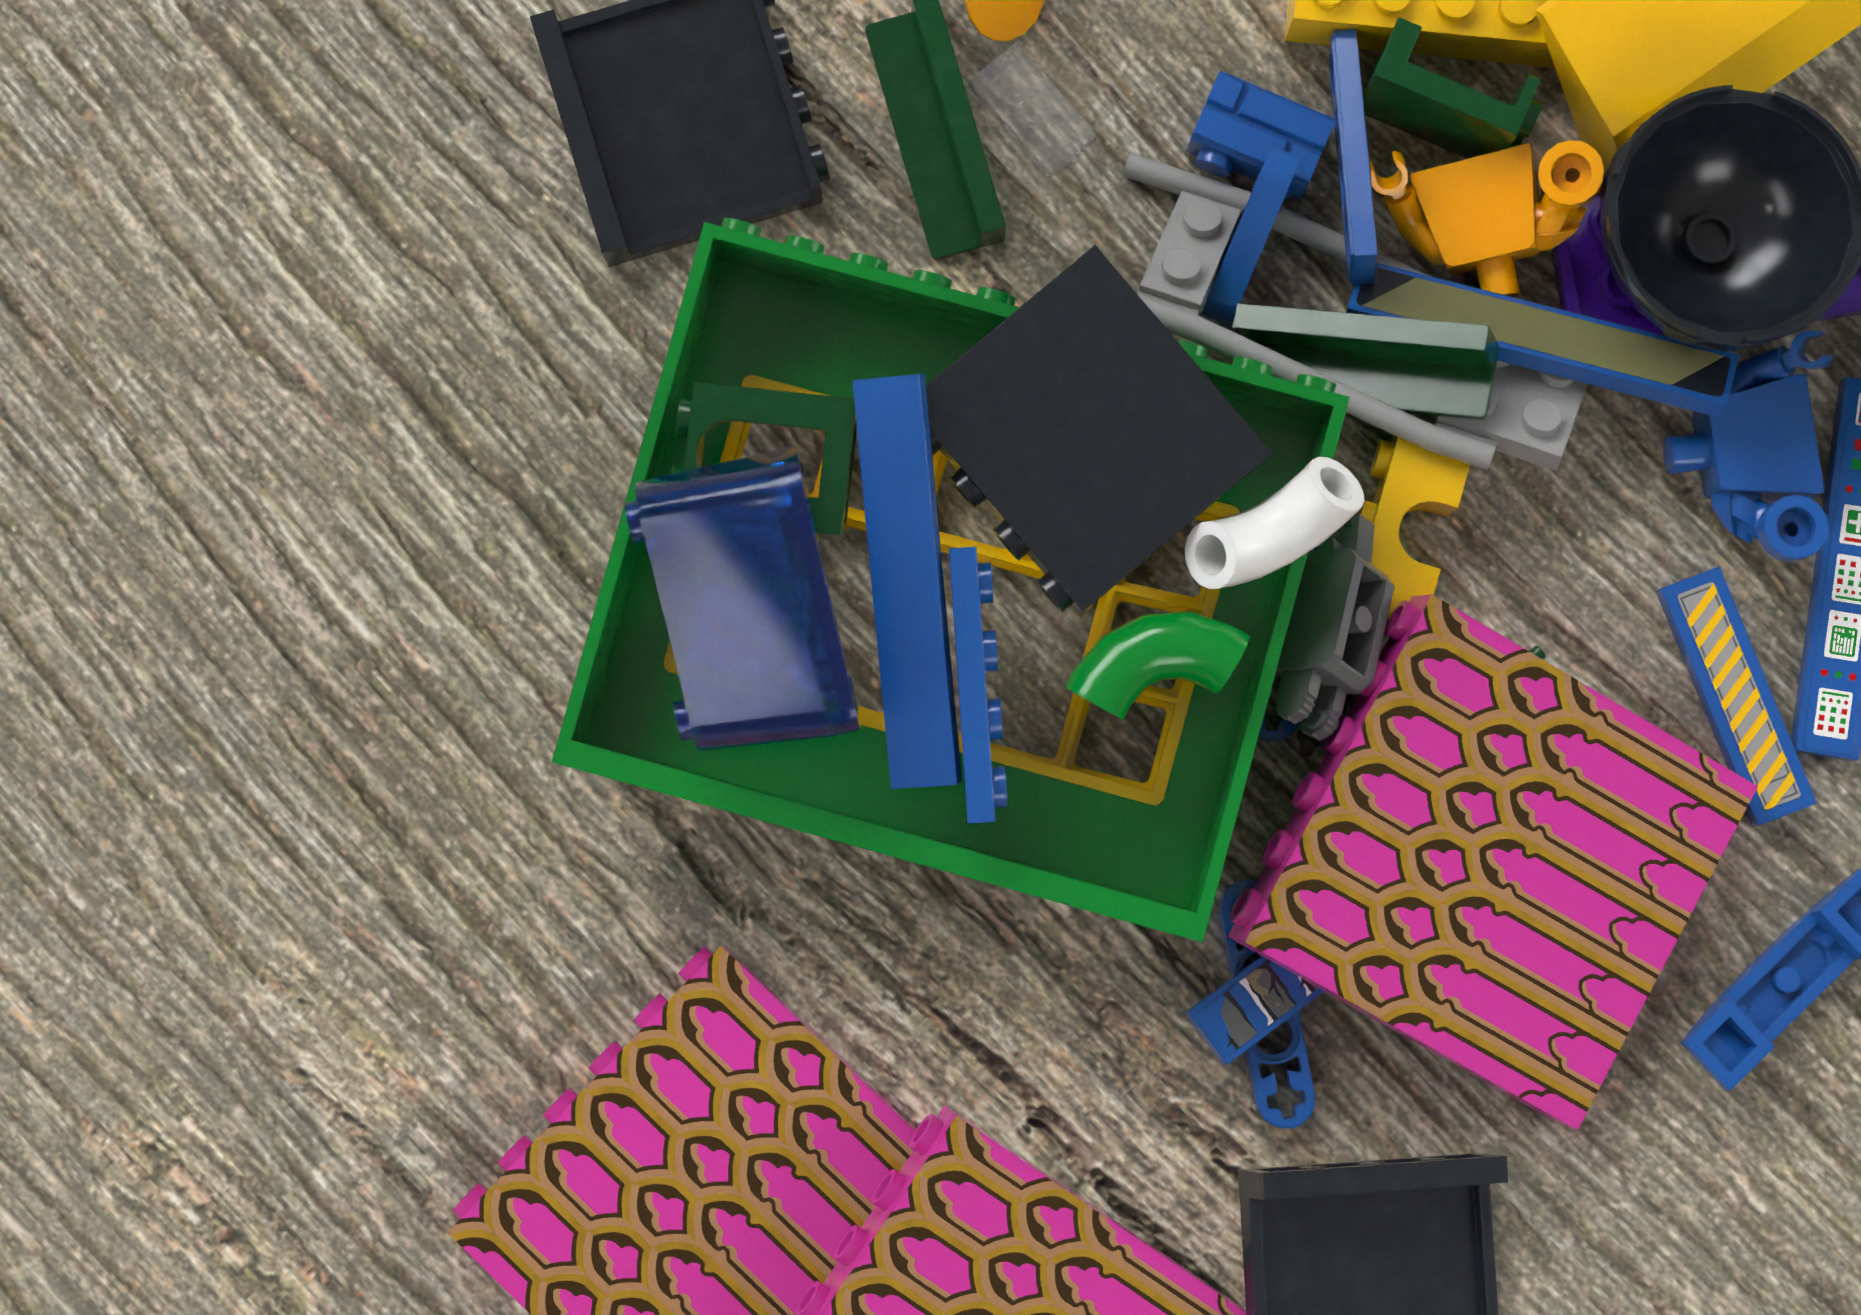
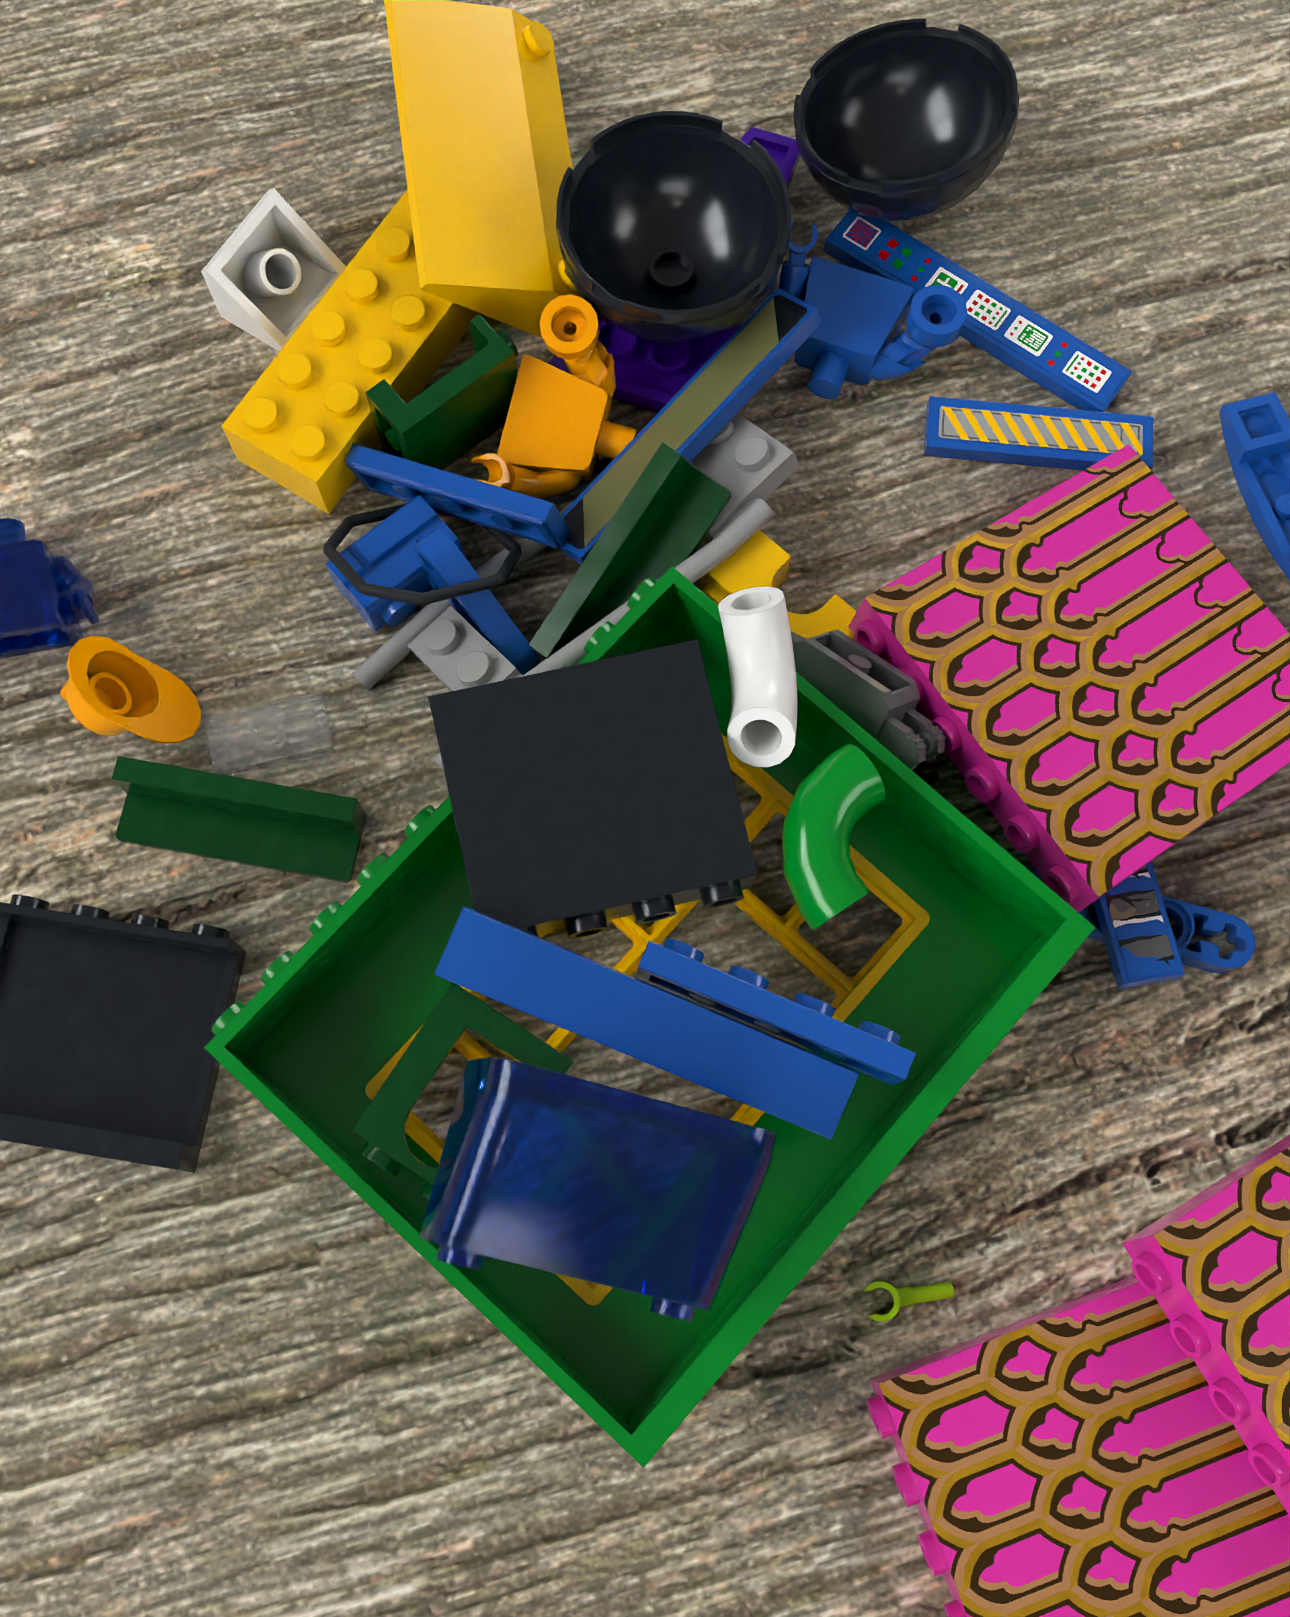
camera: 65 degrees left, 10 degrees down
(811, 945) = (909, 1296): none -> lime hand
(1212, 164) = (410, 596): none -> black piece

